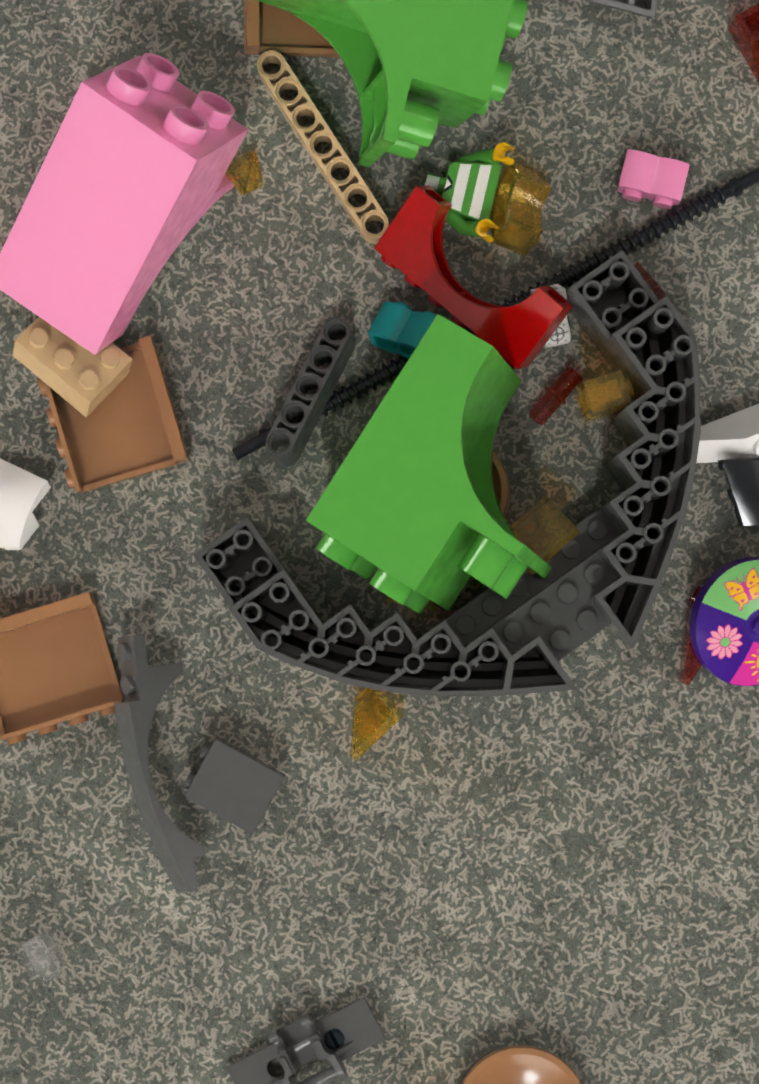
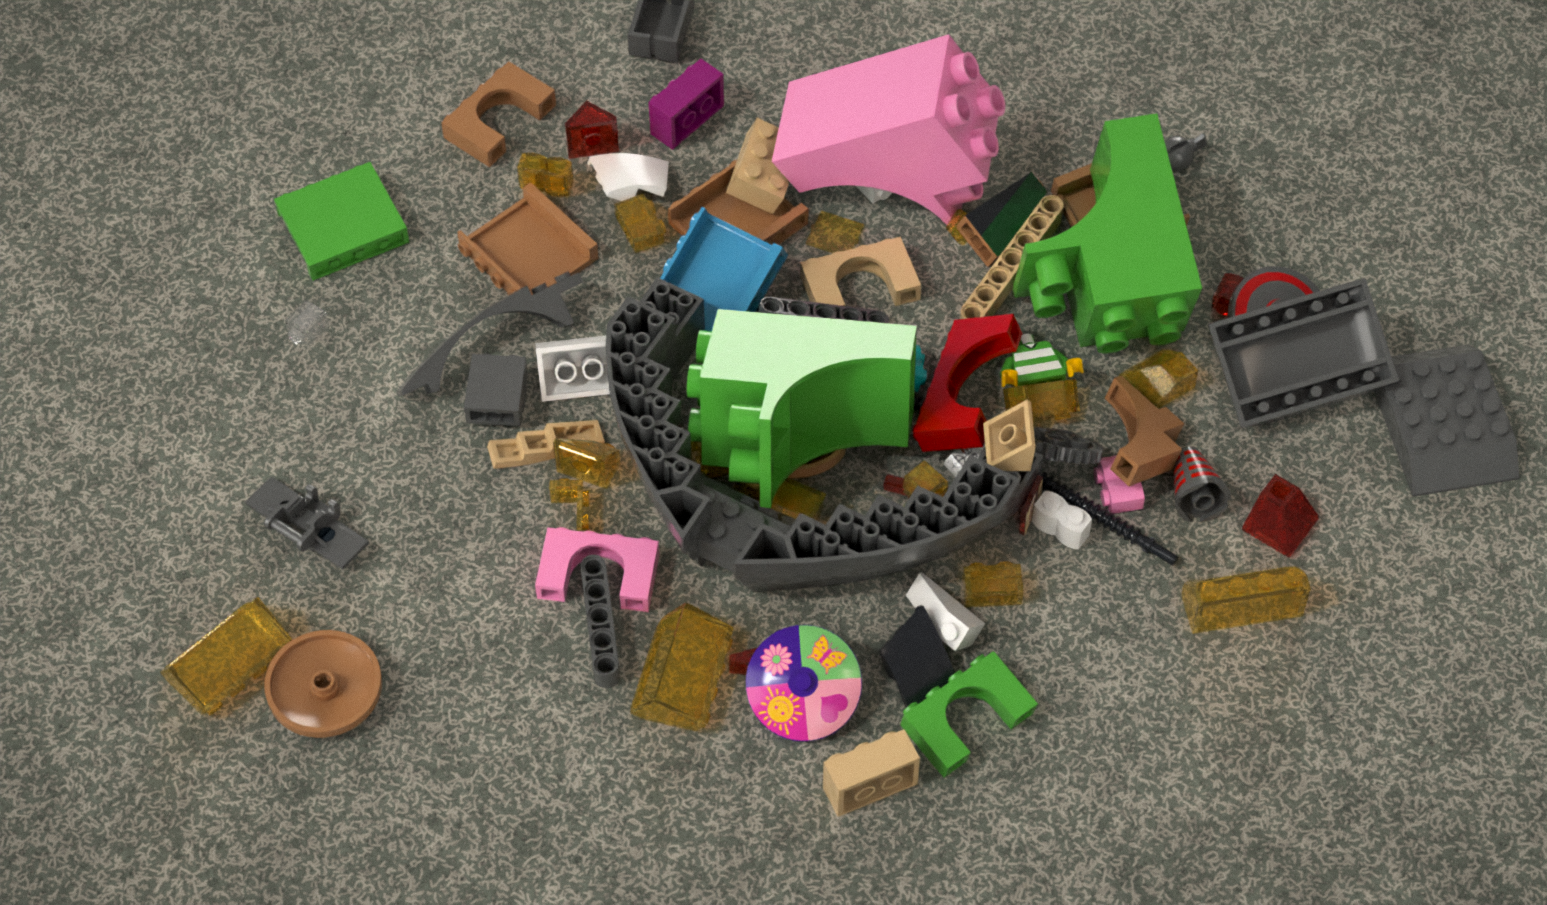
camera: 60 degrees right, 30 degrees down
(72, 527) = (640, 223): none -> clear yellow brick
(183, 318) = (834, 233): none -> clear yellow piece
(197, 477) = (723, 266): none -> dark azure panel
(235, 683) = (572, 368): none -> white slope
(252, 279) = (885, 259): none -> tan arch
(272, 144) = (1000, 218): none -> slope
(321, 756) = (538, 446): none -> tan slope
(393, 760) = (572, 491): none -> clear yellow bracket
(513, 723) = (567, 548): none -> bright pink arch
(540, 66) = (1162, 376): none -> clear yellow slope
(586, 800) = (602, 632): none -> dark grey beam
(593, 222) = (1066, 446): none -> dark grey gear
(602, 278) = (1011, 439): none -> tan slope
(606, 114) = (1150, 434): none -> medium nougat arch
(672, 738) = (682, 669): none -> clear yellow windscreen
(679, 259) = (1065, 521): none -> white brick
(692, 100) = (1198, 487): none -> dark grey cone
(717, 368) = (992, 584): none -> clear yellow brick

